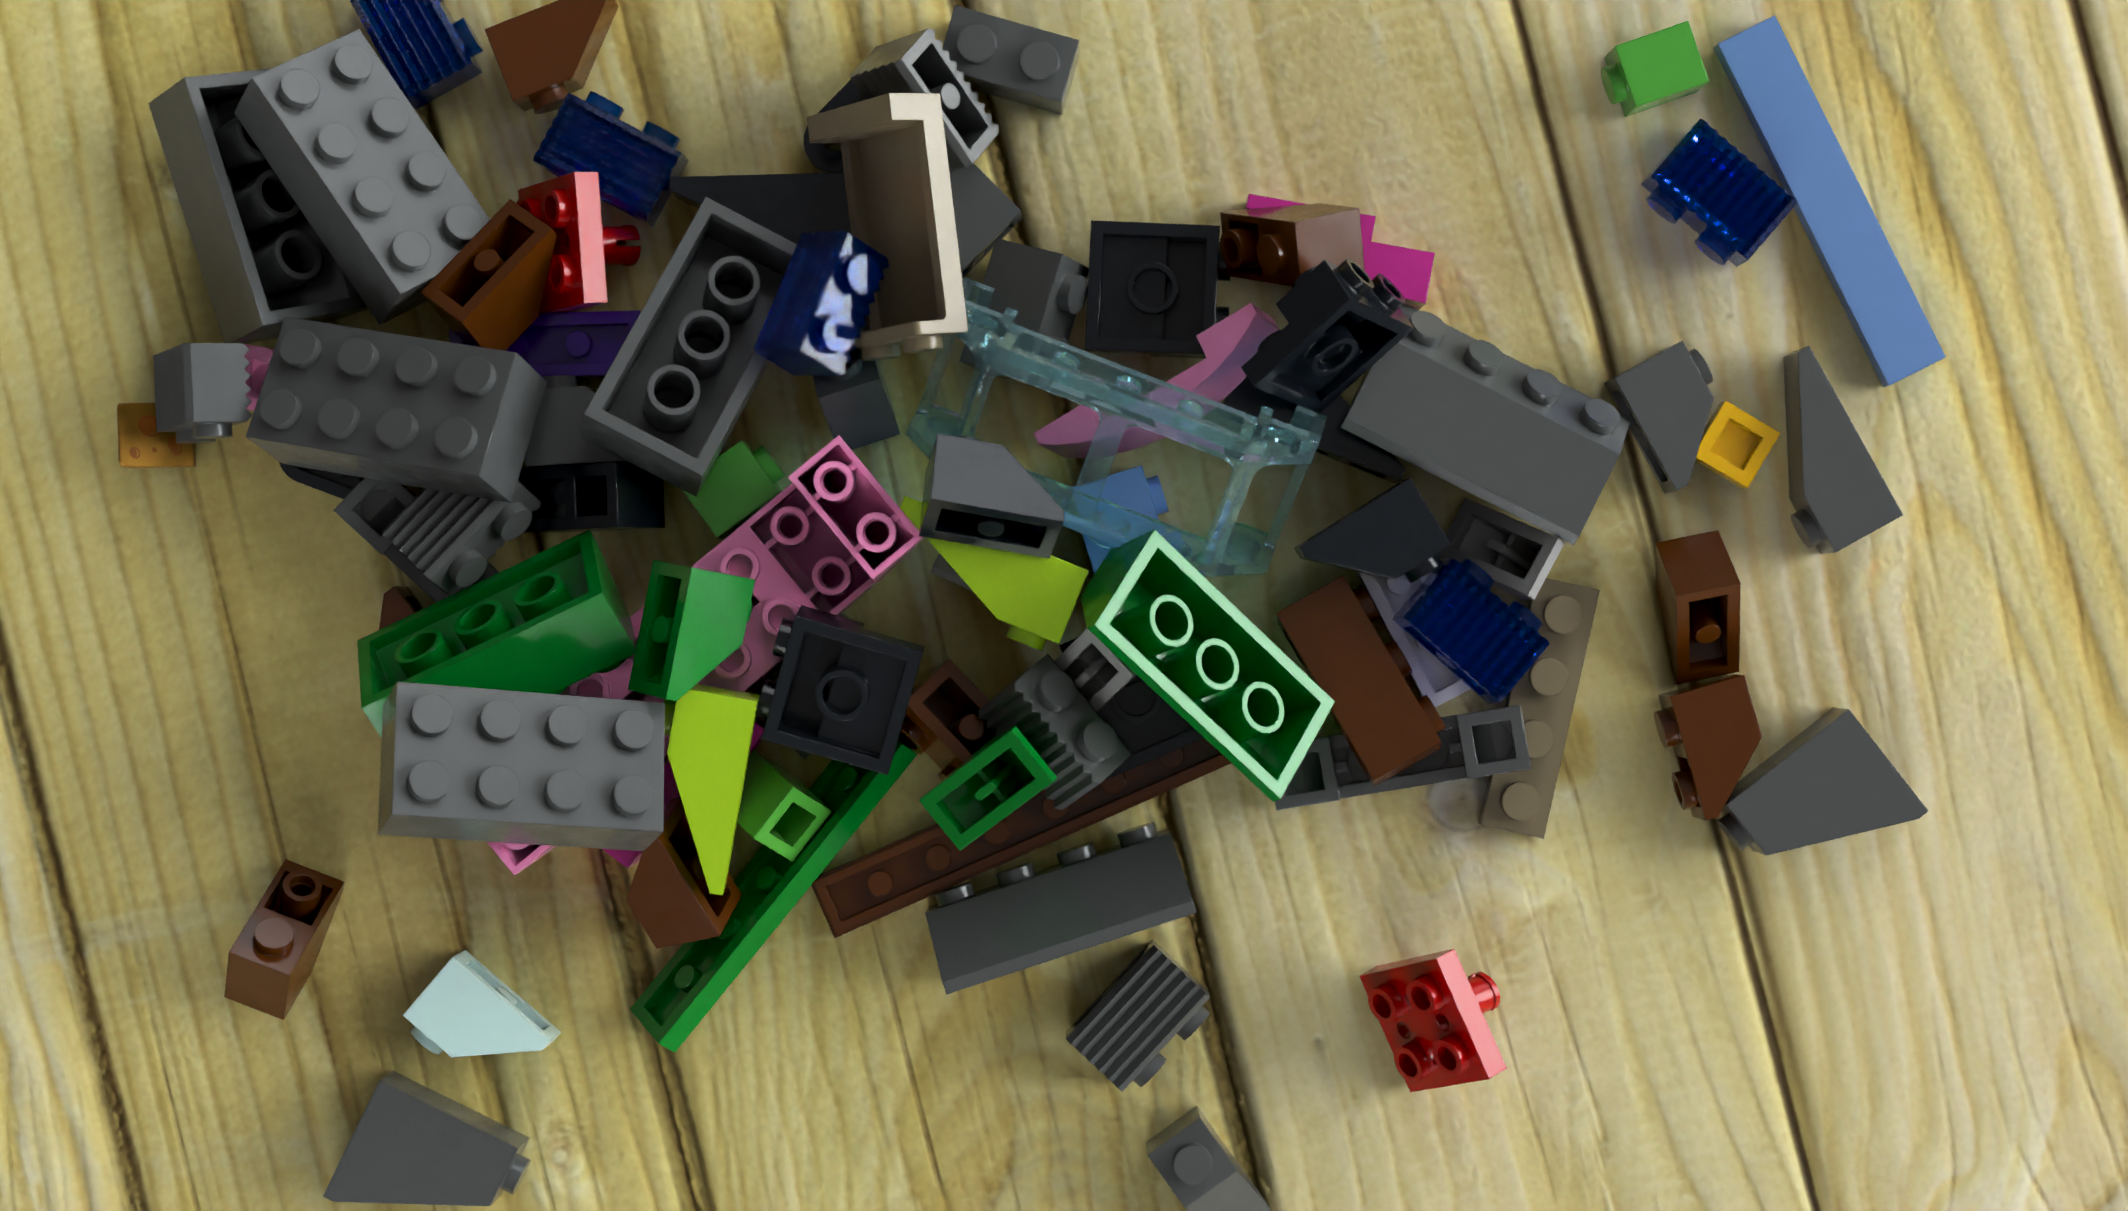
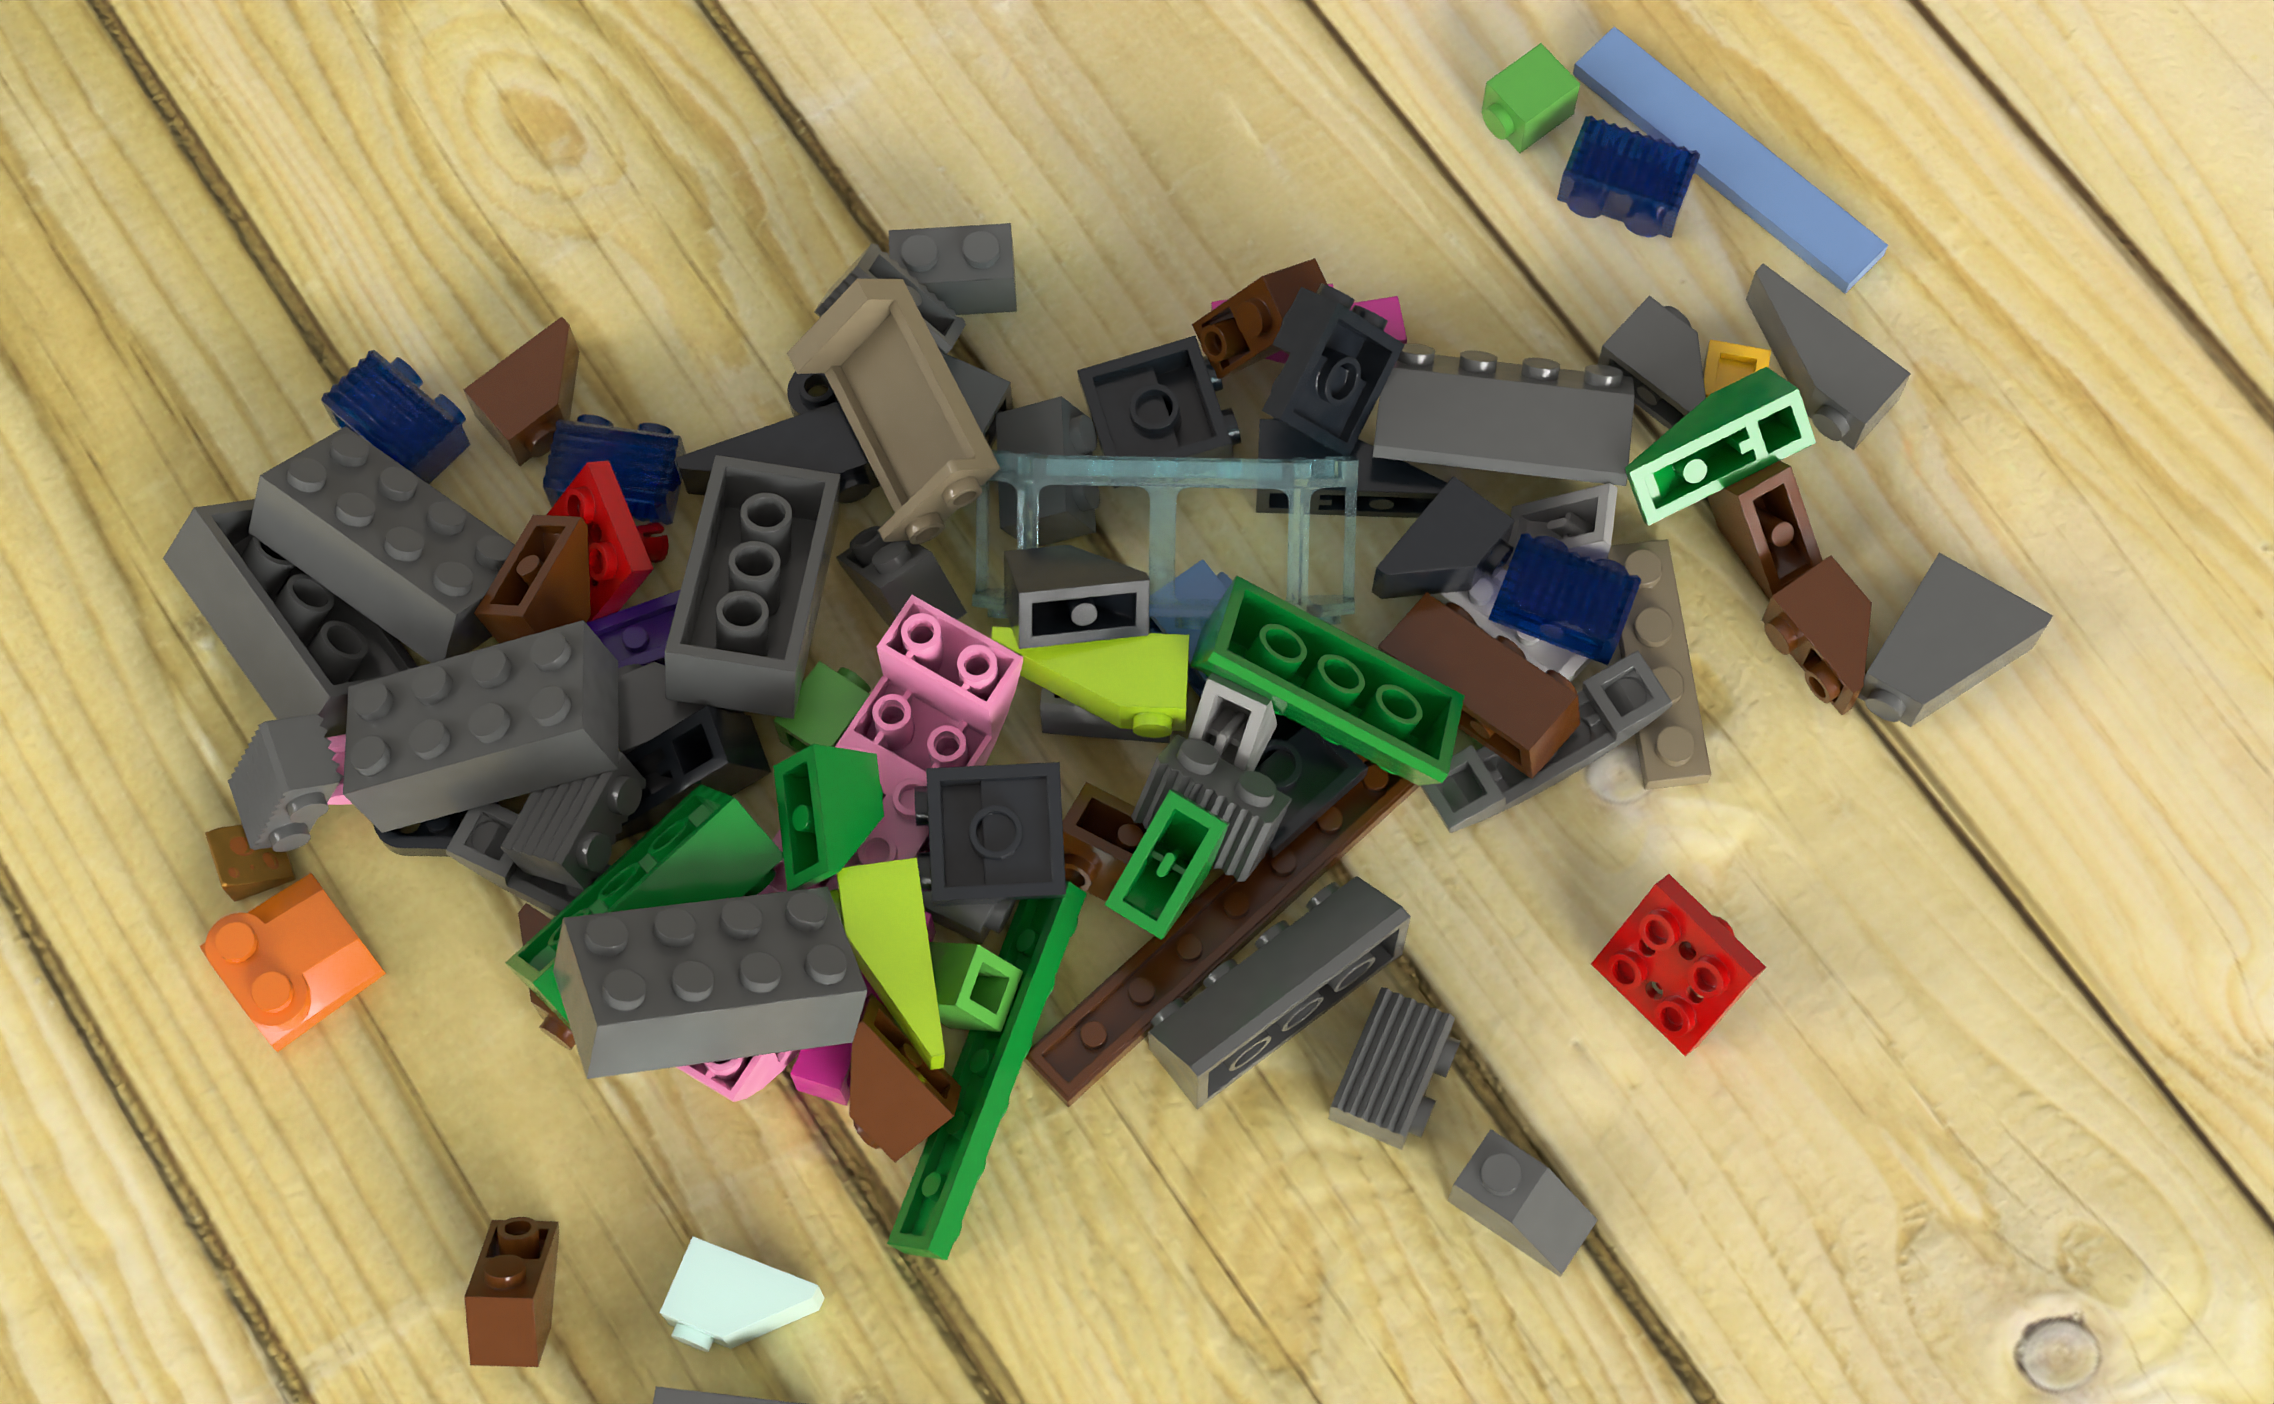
camera: 20 degrees left, 20 degrees down
(166, 549) = (290, 960): none -> orange slope
(821, 304) = (855, 499): clear blue brick -> none
(1226, 350) = (1205, 510): bright pink slope -> none
(1686, 528) = (1720, 444): none -> green slope

